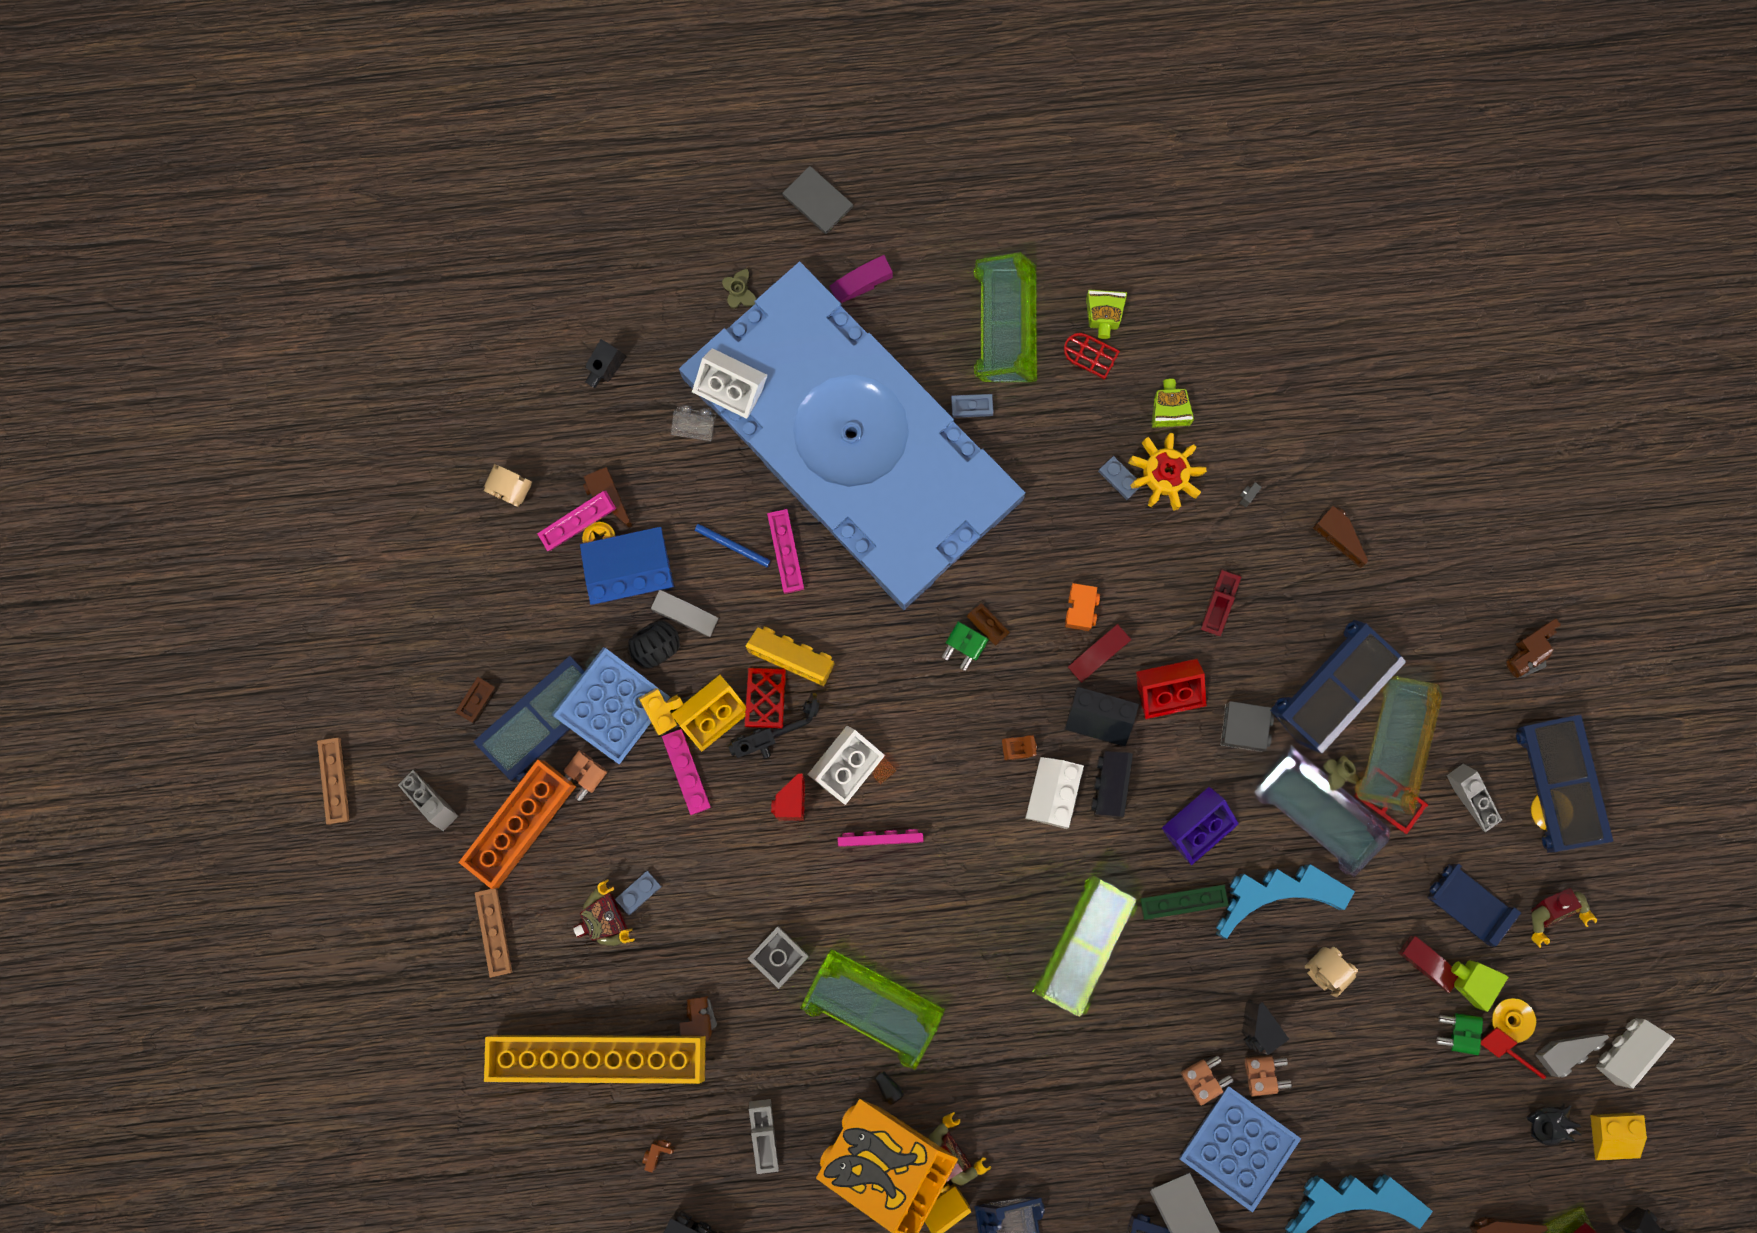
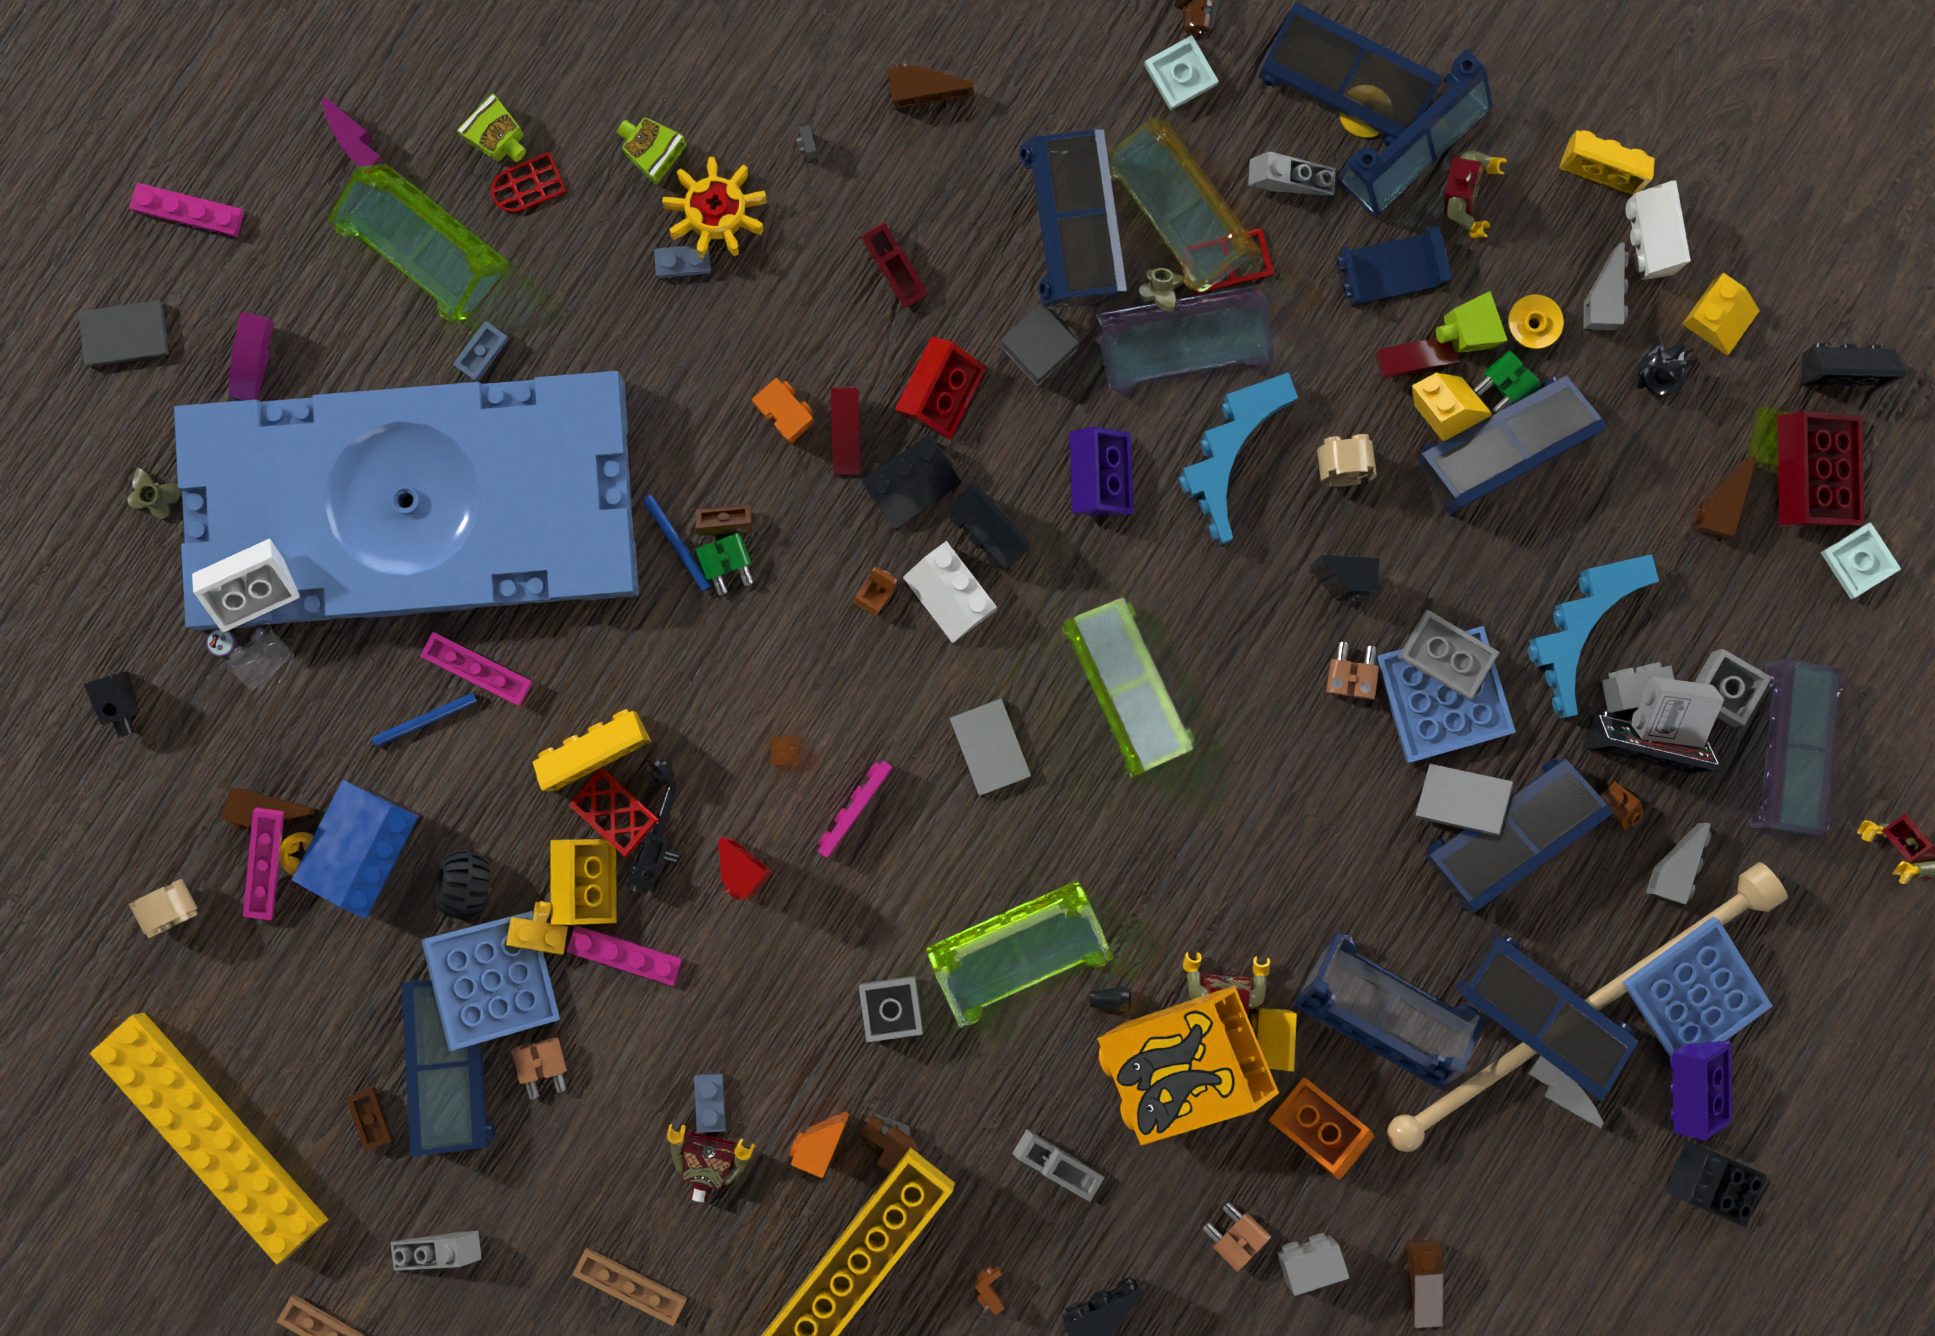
camera: 50 degrees left, 5 degrees up
(395, 617) = (209, 1137): none -> yellow brick
(517, 824) = (536, 1175): orange brick -> none
(663, 978) = (816, 1146): none -> orange slope
(684, 395) = (221, 643): none -> tile
(684, 613) = (456, 827): light grey slope -> none
(846, 764) = (750, 783): white slope -> none
(916, 178) = (187, 210): none -> dark pink plate
(952, 607) = (677, 543): none -> blue bar
(981, 891) = (990, 747): none -> light grey tile
(1035, 233) = (350, 136): none -> magenta slope
(1184, 902) = (1163, 551): dark green plate -> none
(1262, 1075) = (1392, 613): nougat piece -> none
(1265, 1131) = (1448, 655): none -> light grey tile
(1417, 1006) = (1448, 404): none -> yellow slope
(1426, 1064) = (1509, 443): none -> windscreen
(1479, 680) = (1181, 72): none -> light aqua plate
(1500, 1043) = (1546, 353): red piece -> none
(1518, 853) = (1381, 178): none -> windscreen
(1649, 986) = (1607, 162): none -> yellow slope

